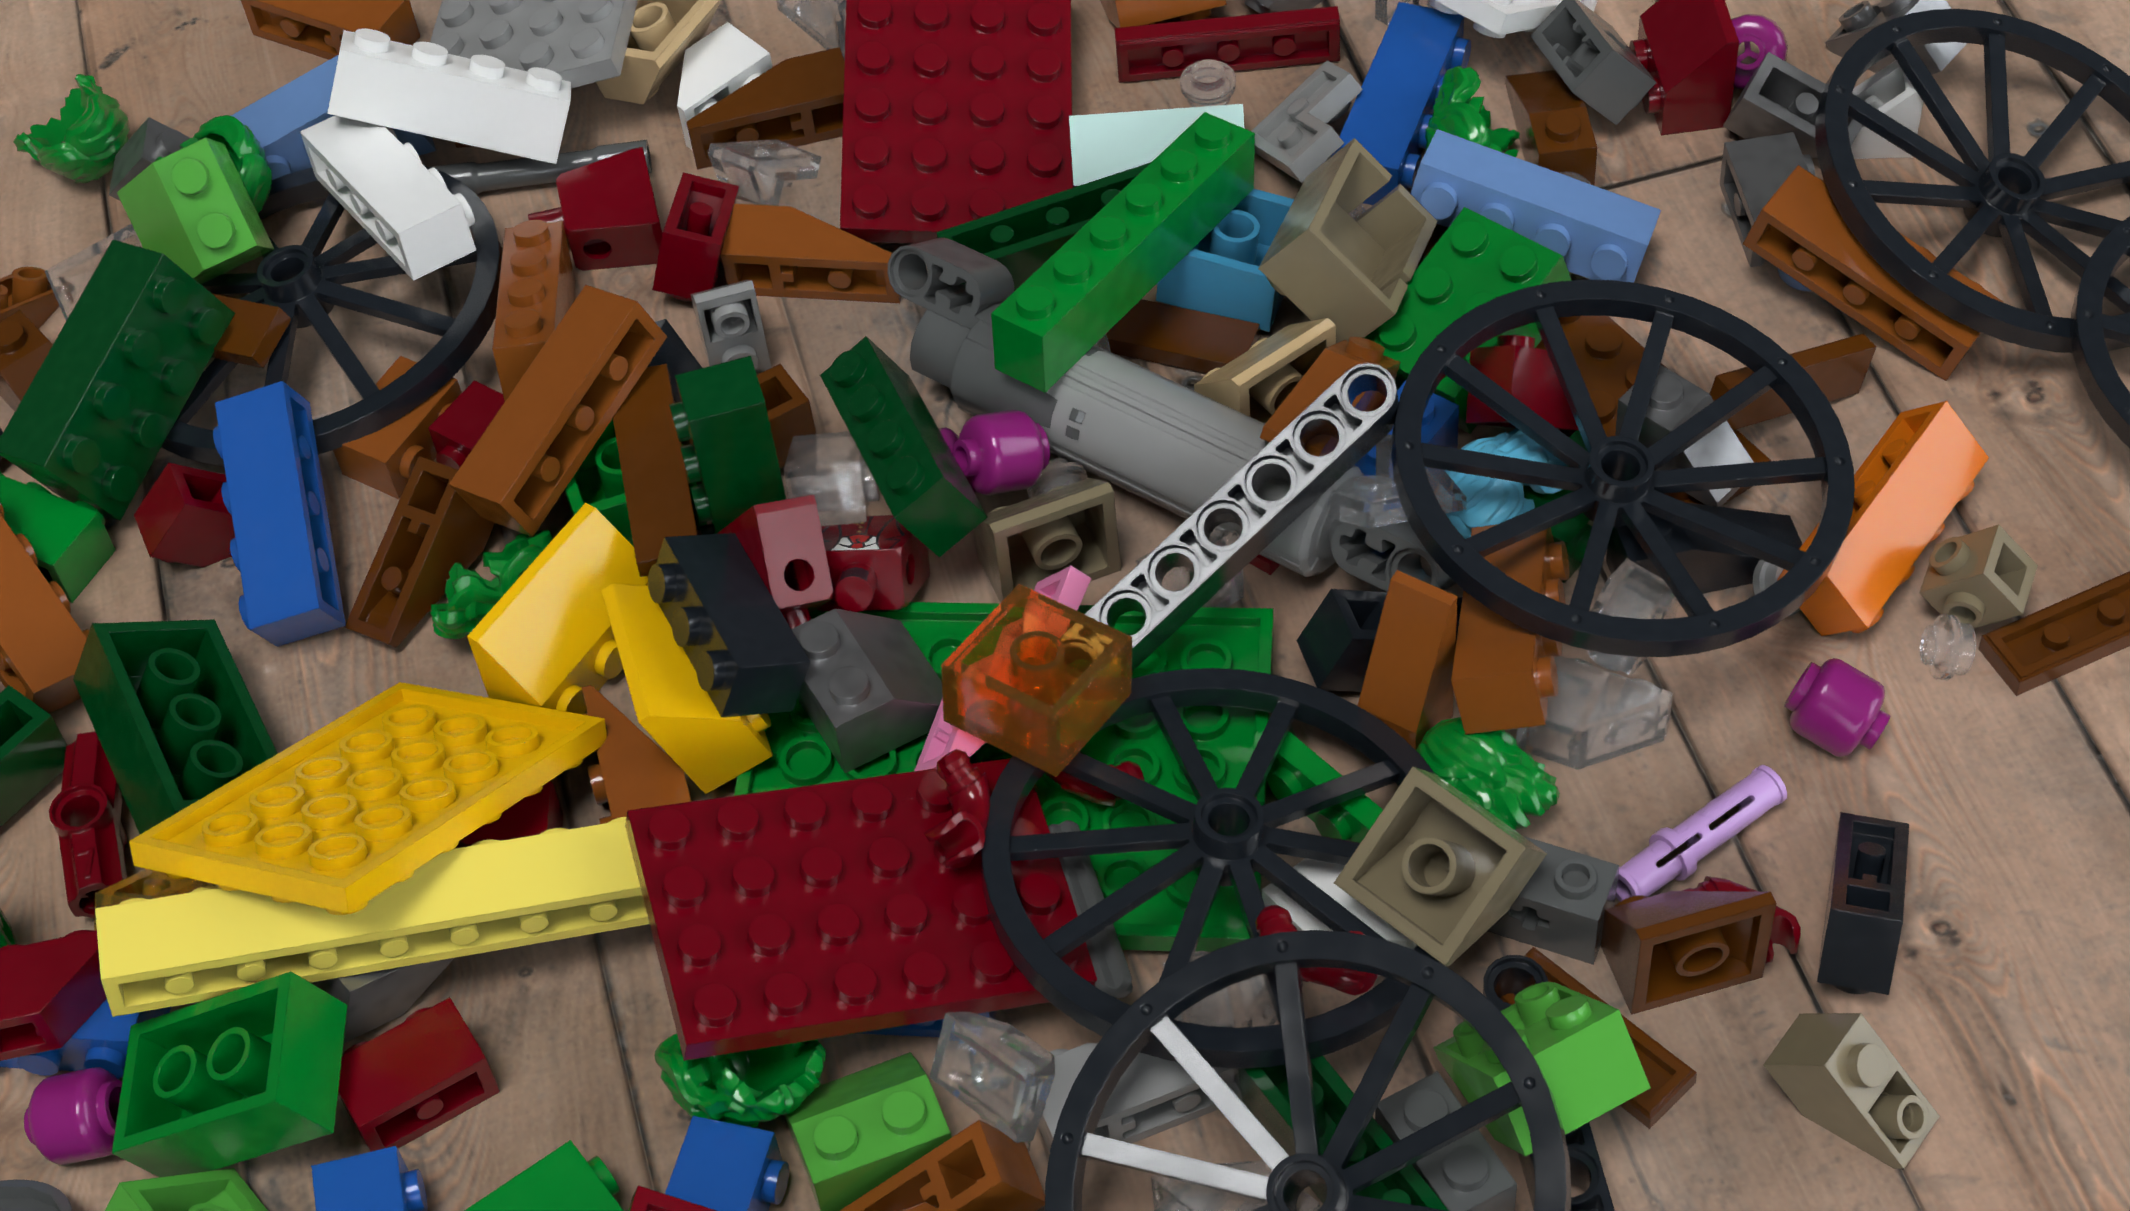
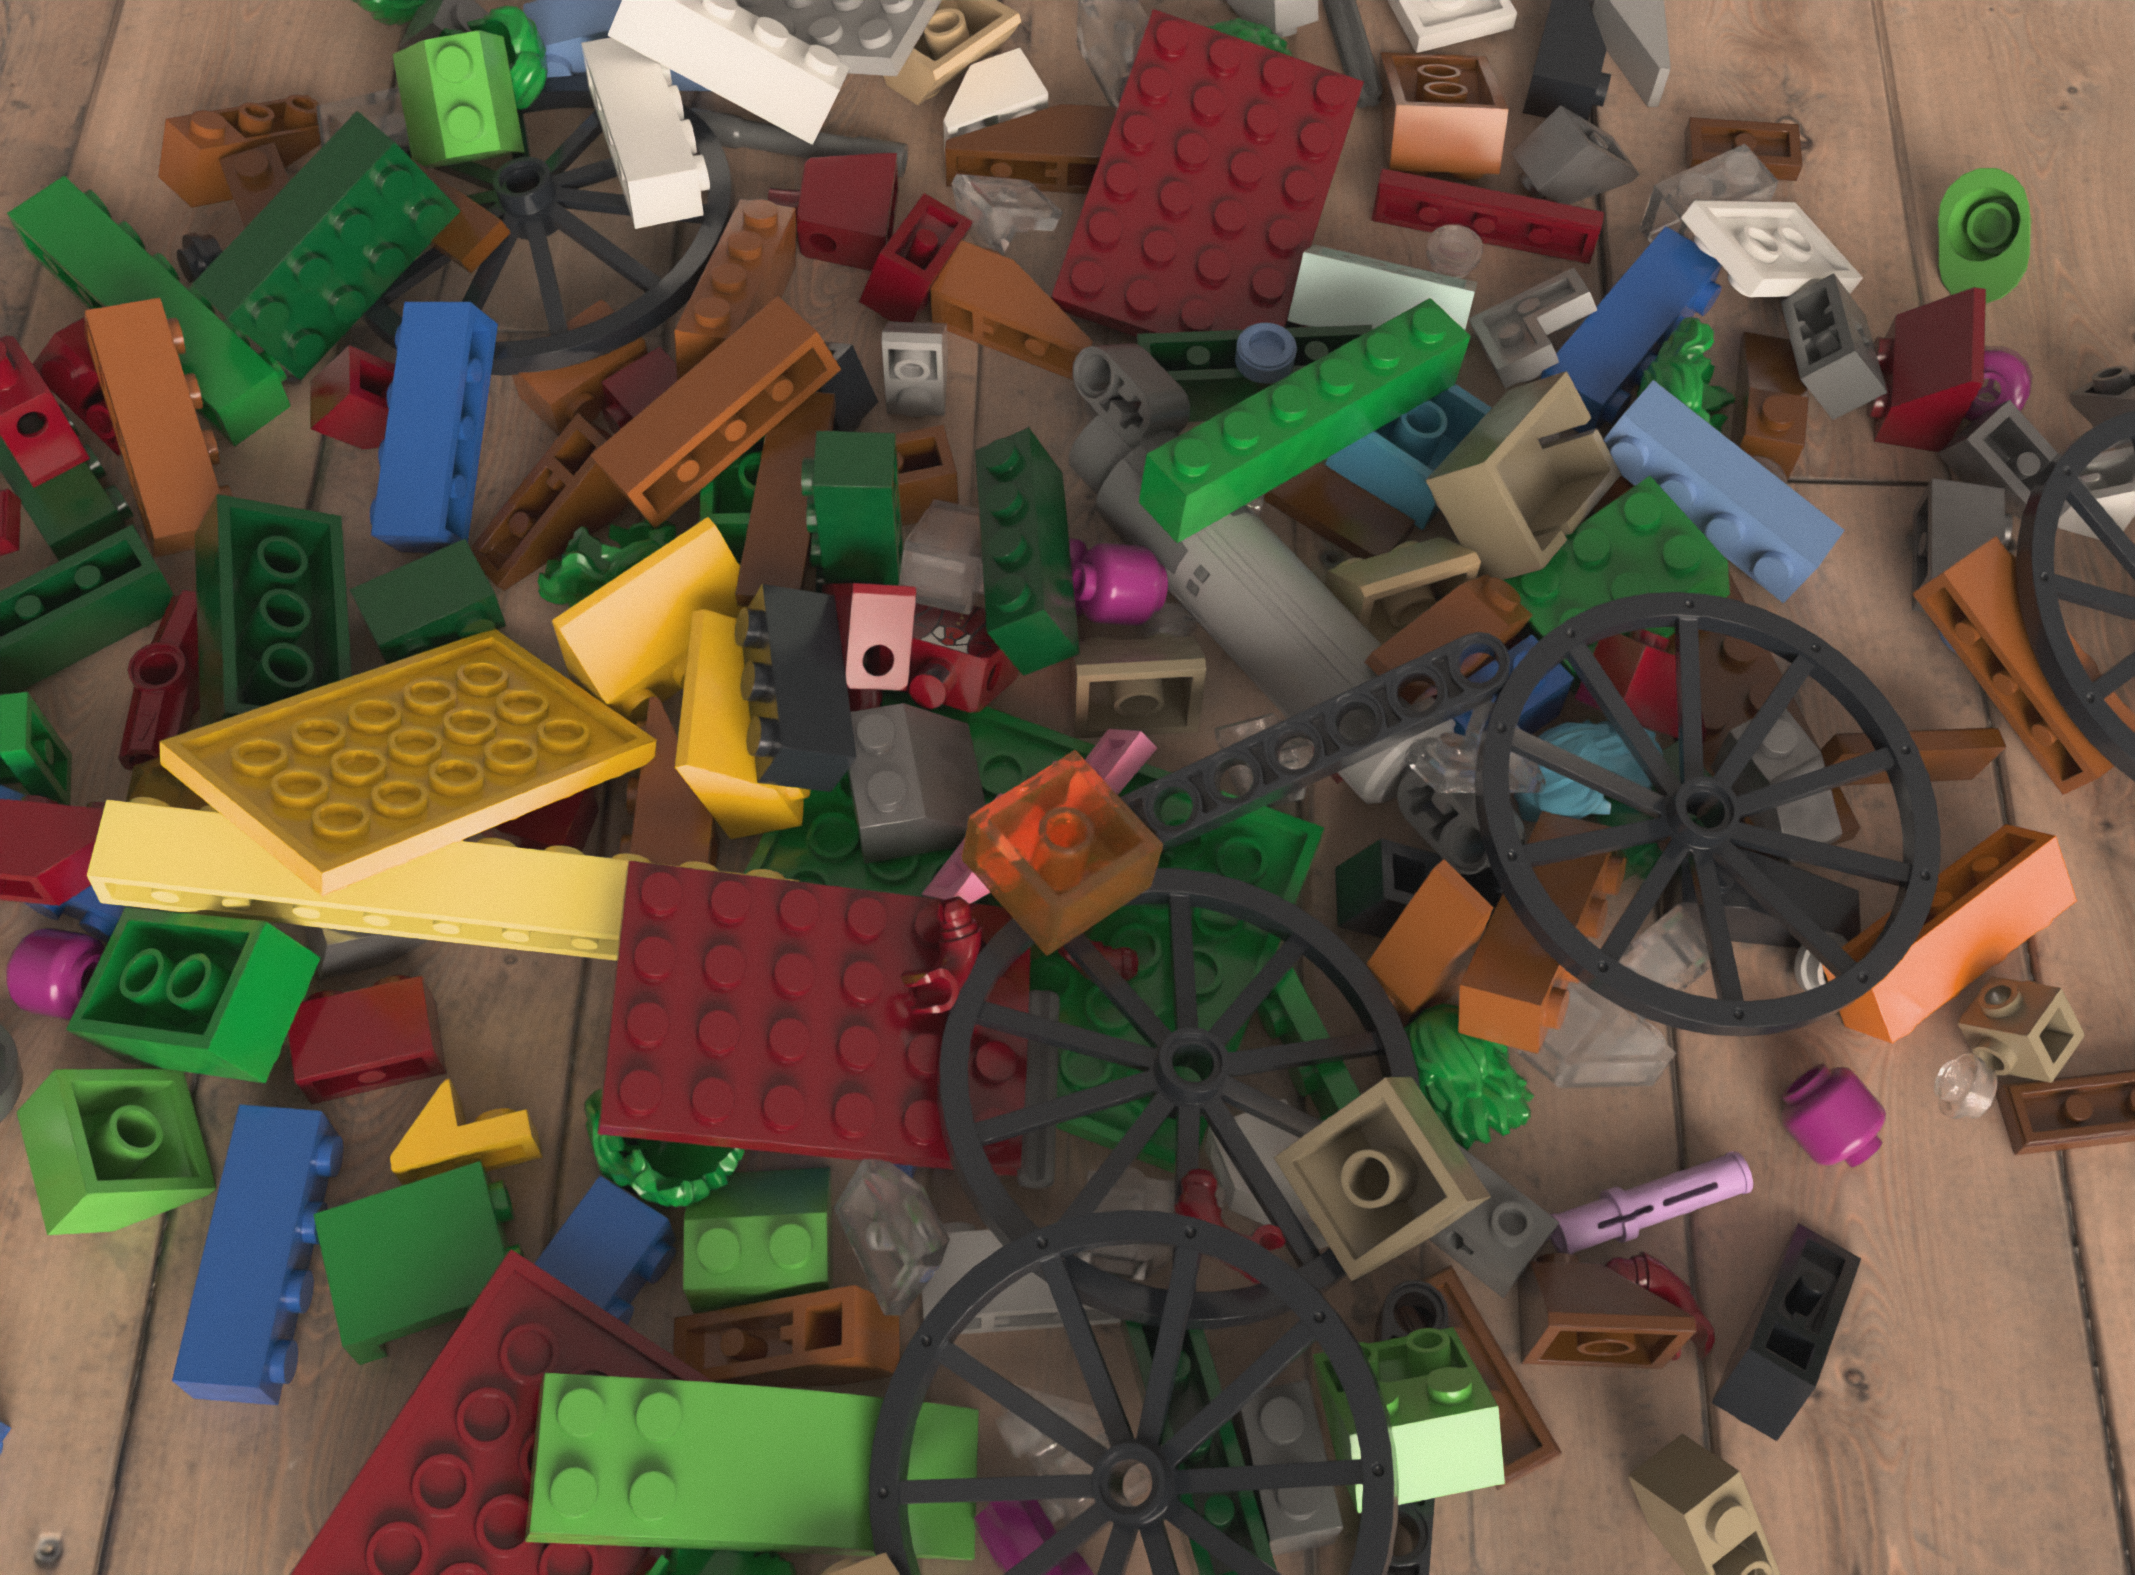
camera: 10 degrees right, 10 degrees up
(326, 675) = (428, 603): none -> dark green brick
(523, 1139) = (444, 1141): none -> yellow slope
(1064, 210) = (1265, 352): none -> medium blue tile

